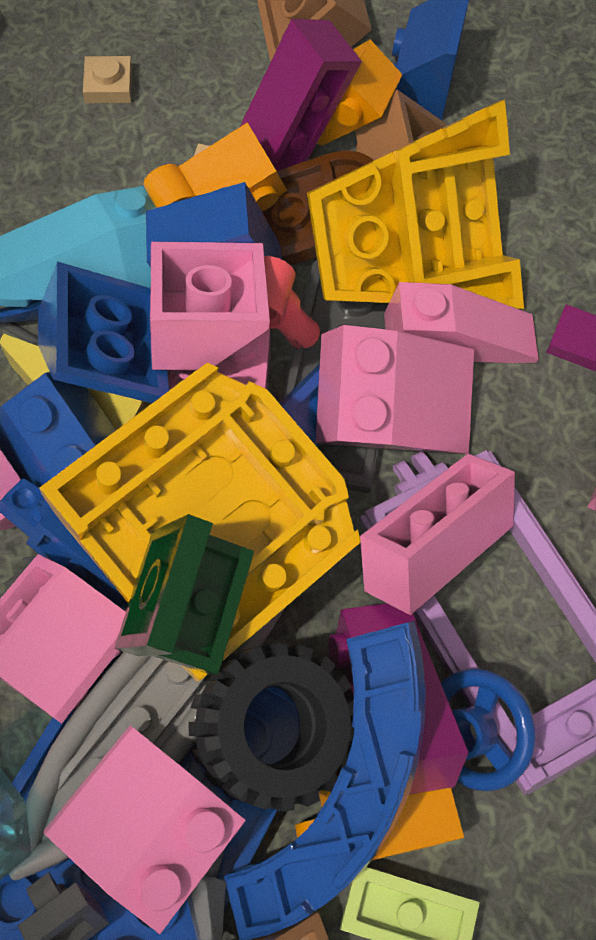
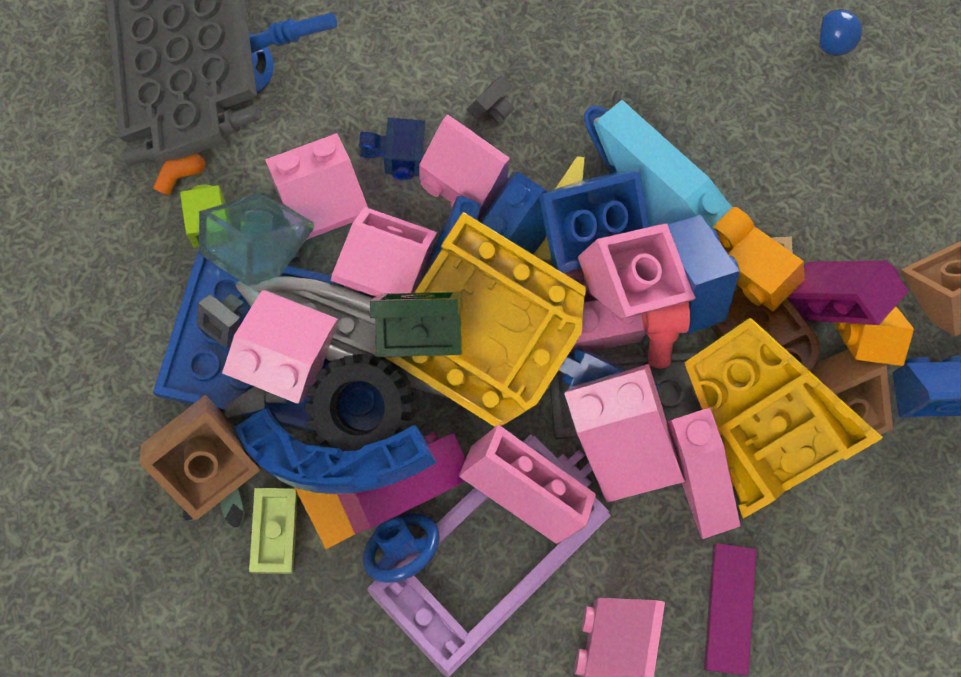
camera: 70 degrees right, 5 degrees up
(107, 79) = (831, 156): tan plate -> none

